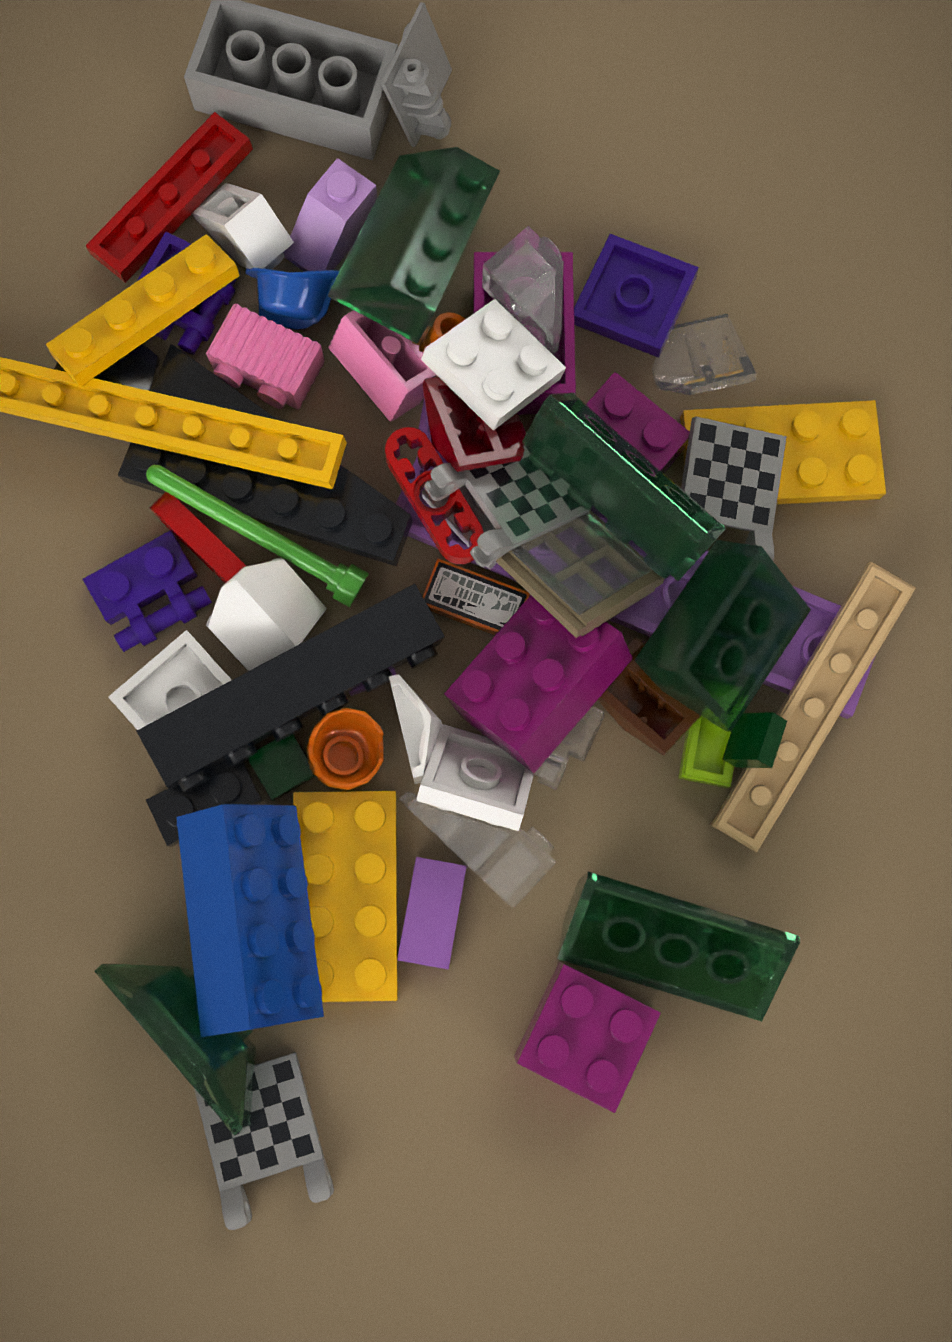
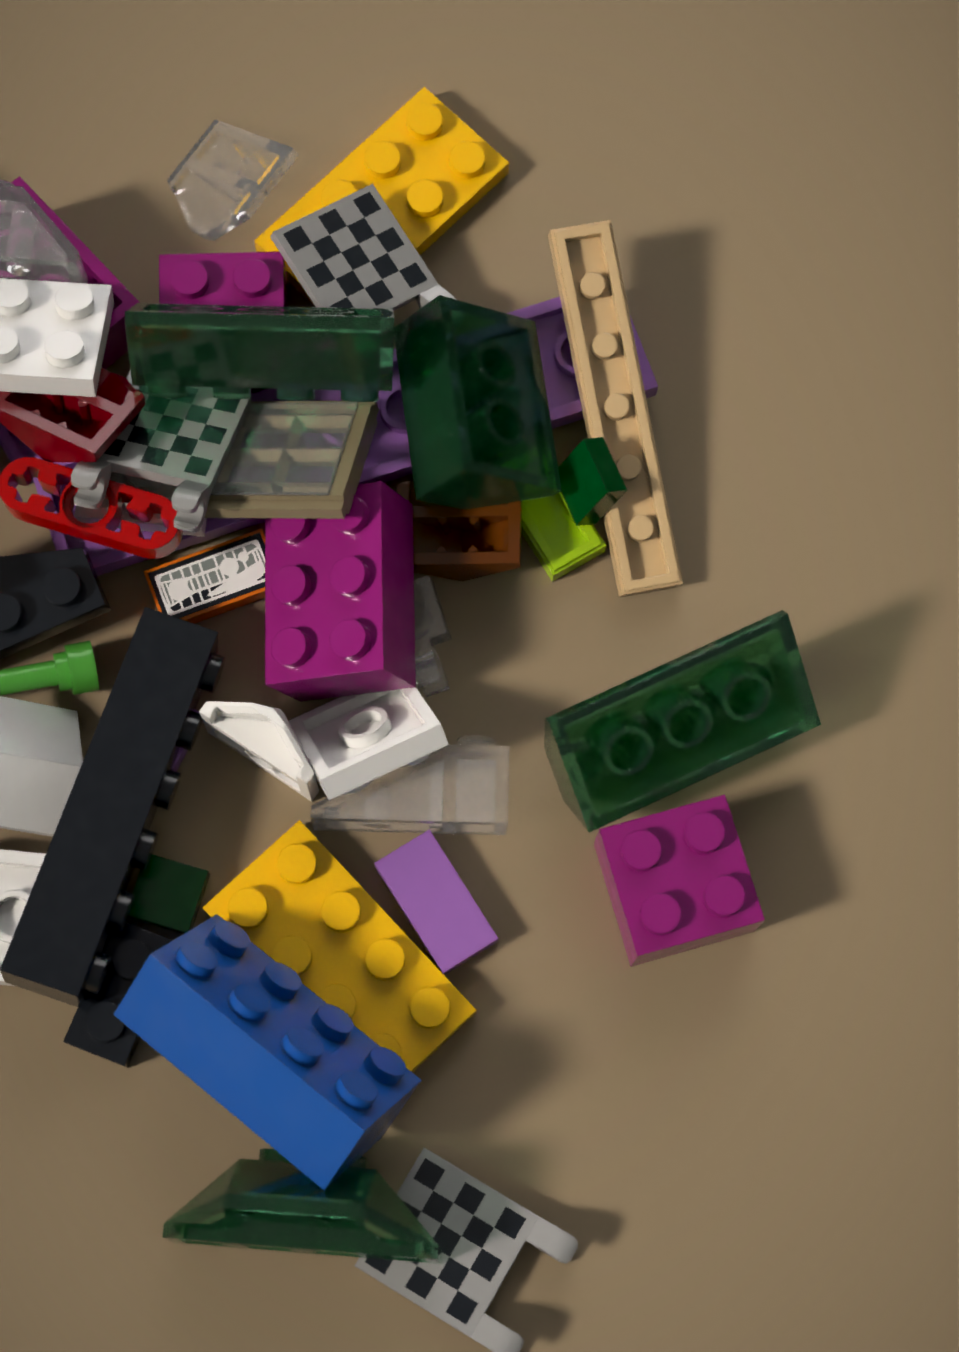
camera: 40 degrees left, 5 degrees down
(345, 749) = (216, 820): orange hair -> none
(634, 295) = (112, 171): dark purple plate -> none

